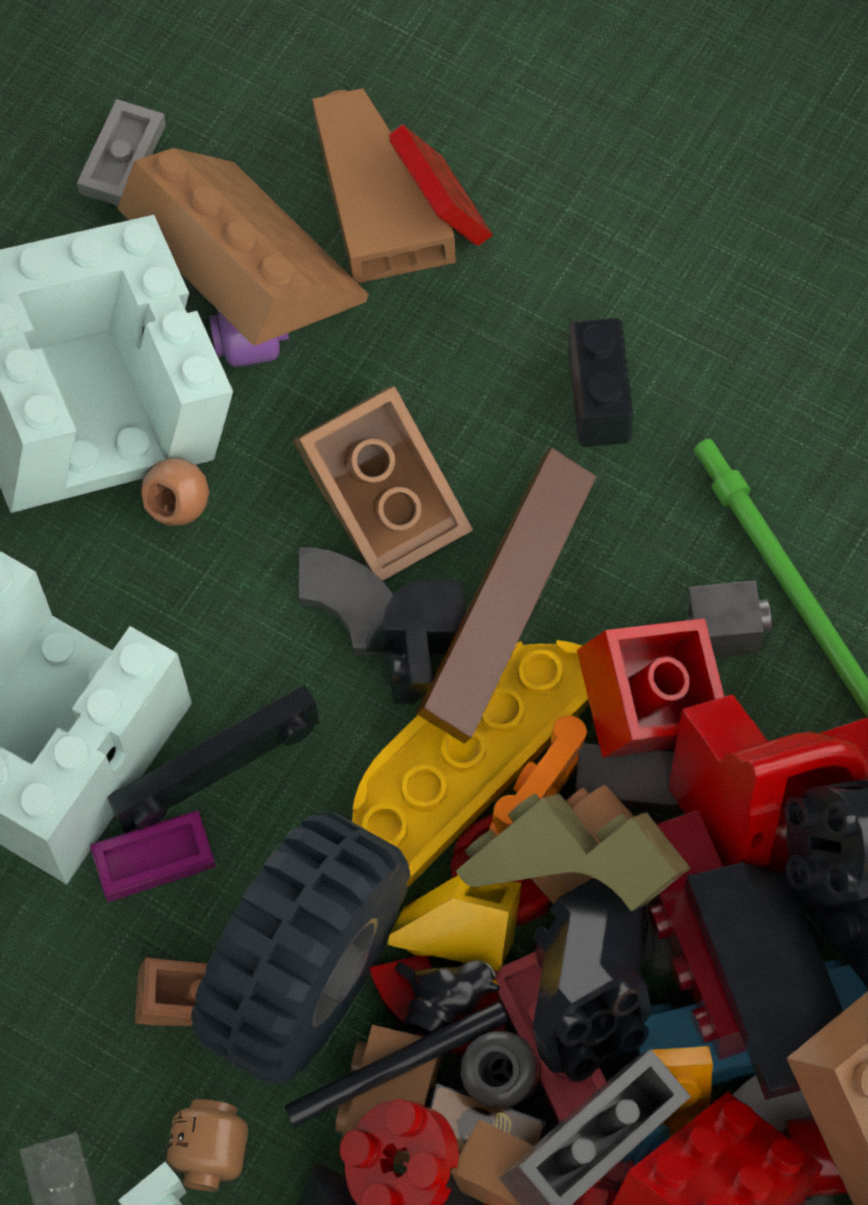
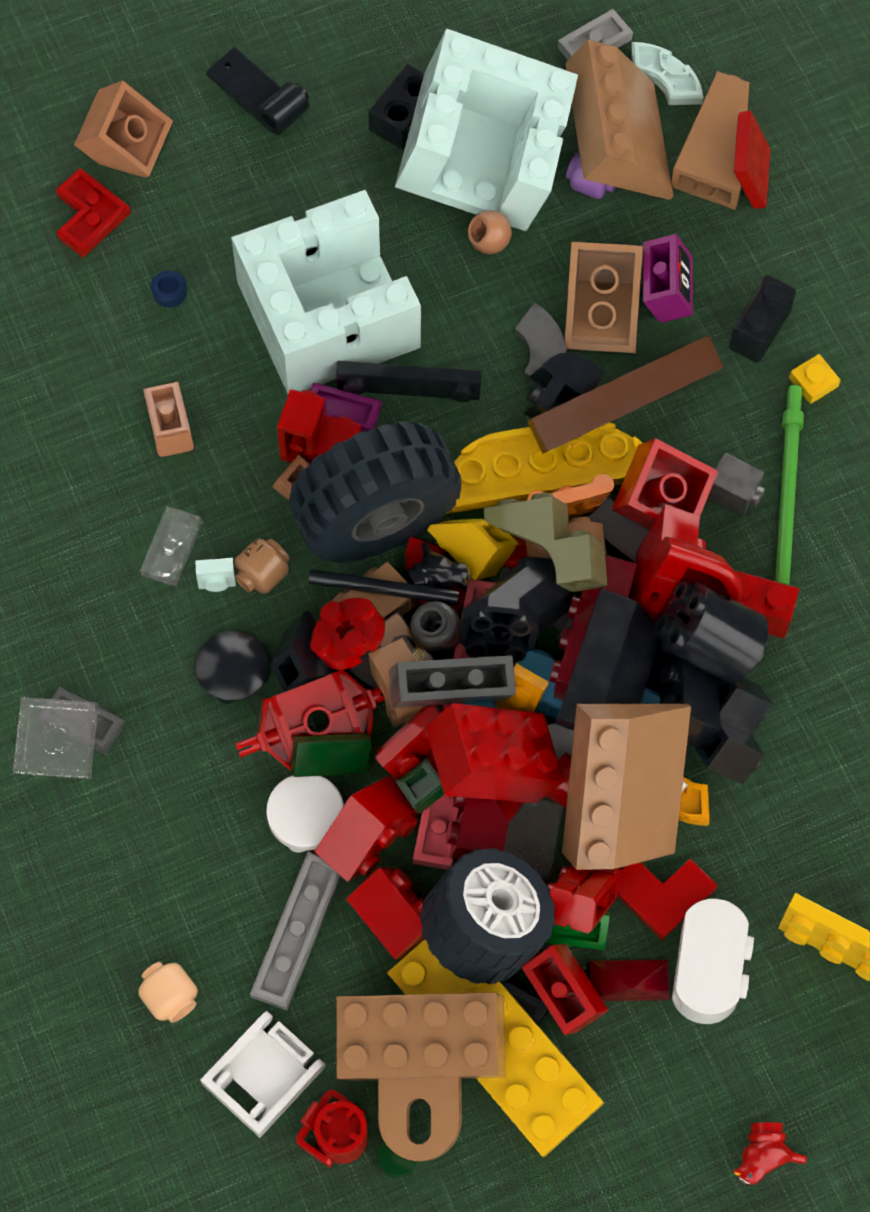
camera: 30 degrees right, 0 degrees up
(153, 916) = (307, 428): none -> red brick
(244, 139) = (668, 73): none -> light aqua tile
(448, 406) = (668, 278): none -> magenta brick
(716, 416) = (815, 378): none -> yellow plate

